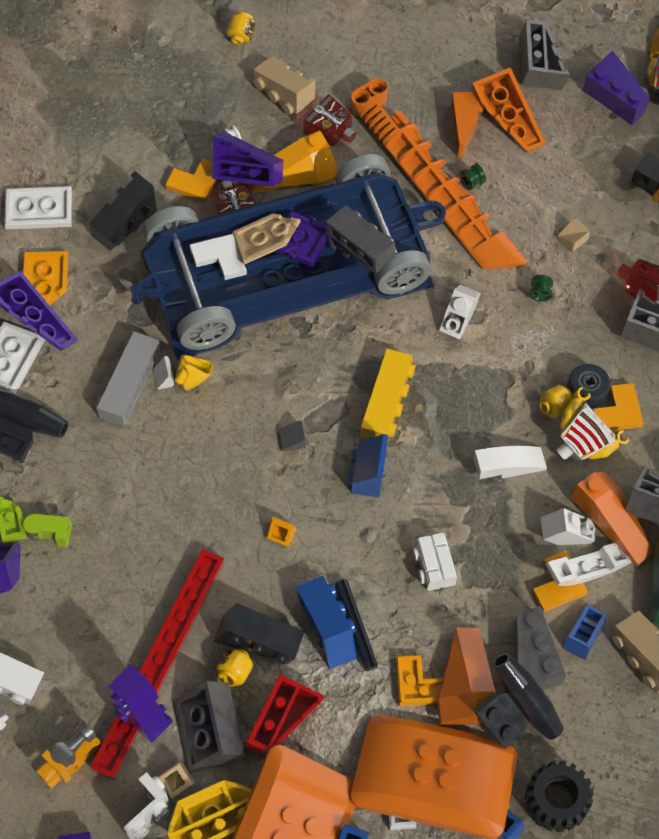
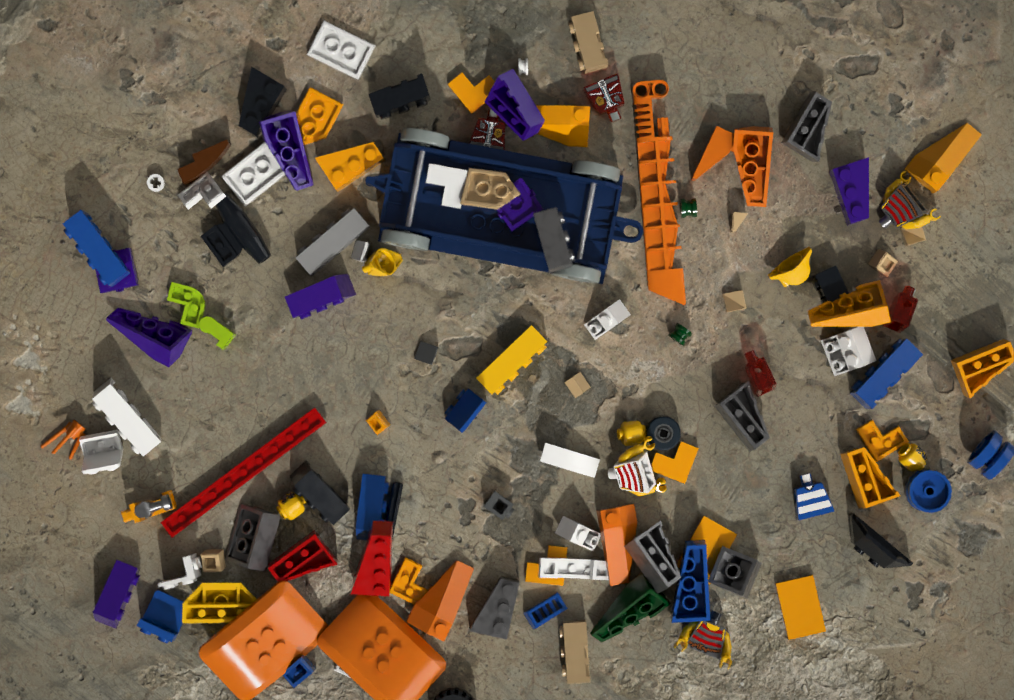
camera: 30 degrees right, 25 degrees up
(104, 298) = (350, 164): none -> light orange wedge
(136, 703) = (209, 506): dark purple wedge -> none
(143, 434) = (320, 295): none -> dark purple wedge
(369, 671) = (375, 565): none -> red wedge
(435, 562) = (470, 506): white brick -> none
(469, 389) = (577, 385): none -> tan slope
(469, 538) = (492, 503): none -> dark grey brick
(520, 703) = (462, 642): black plate -> none
(525, 164) = (736, 220): none -> tan slope
(611, 178) = (793, 269): none -> yellow hat

